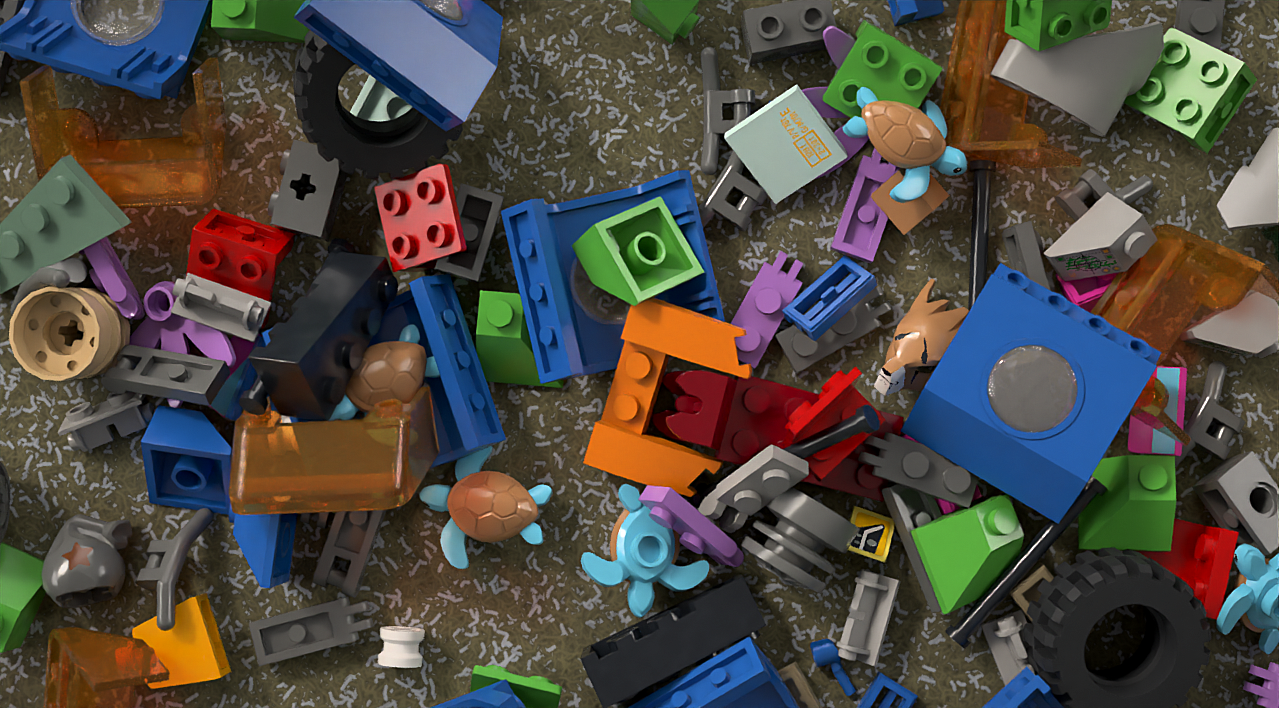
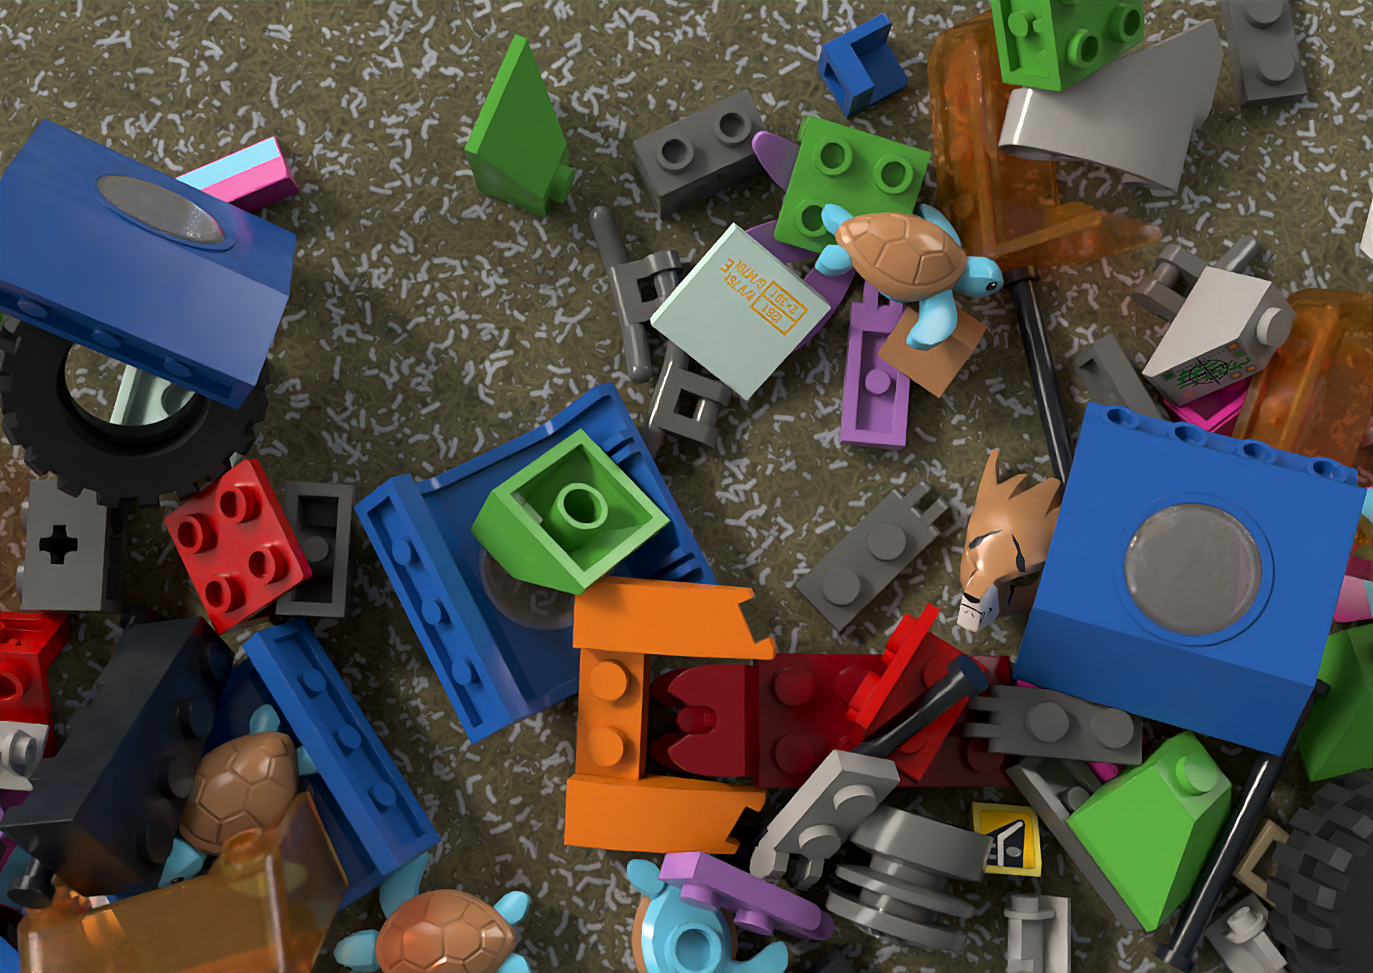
camera: 20 degrees left, 5 degrees down
(505, 341) = (405, 694): bright green slope -> none
(763, 307) = (770, 551): medium lavender hinge -> none
(835, 300) = (867, 514): blue tile -> none
(1193, 89) = (1279, 100): bright green bracket -> none

